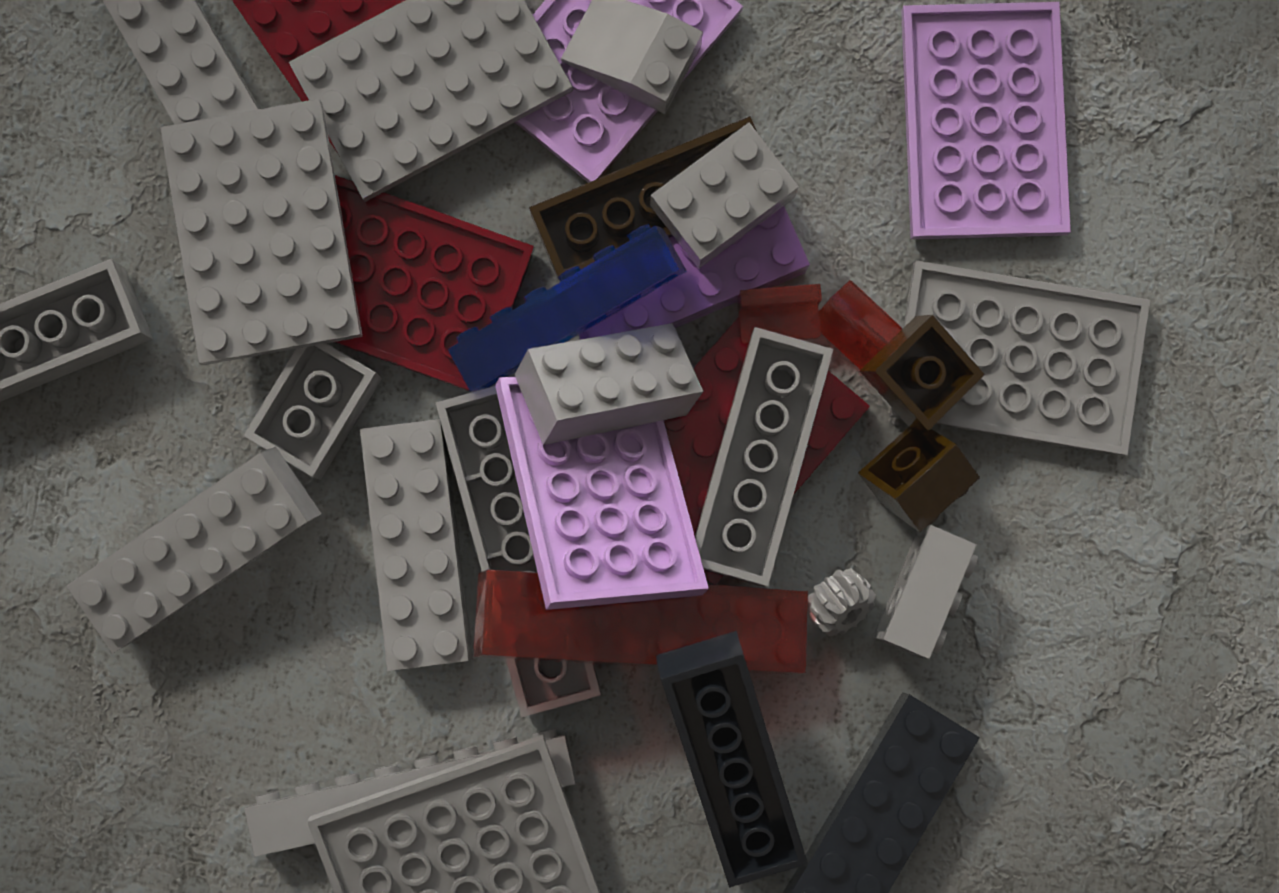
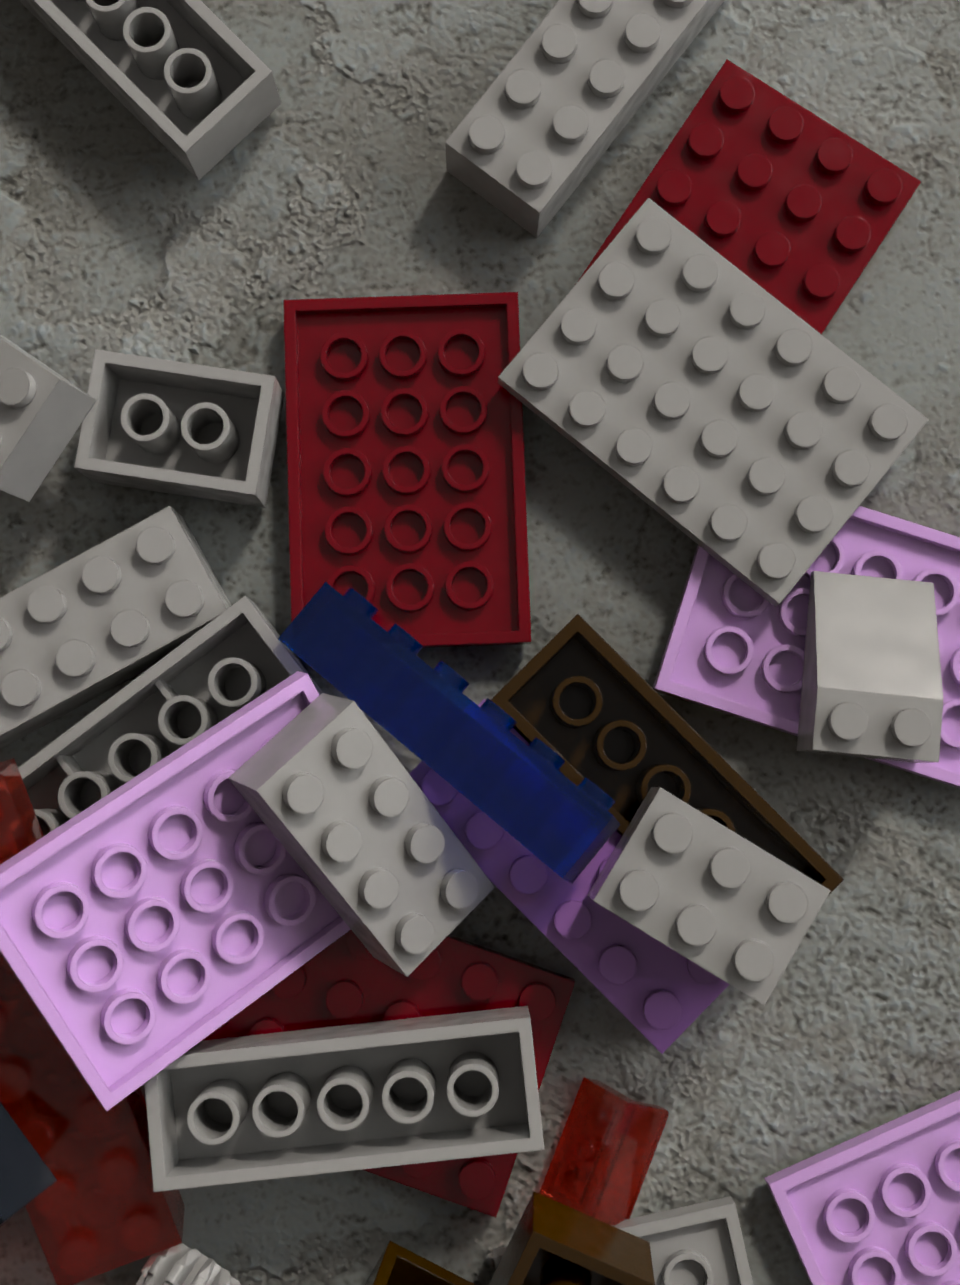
camera: 70 degrees right, 0 degrees up
(260, 232) = (388, 255): light grey plate -> none
(781, 310) = (573, 1037): clear red panel -> none

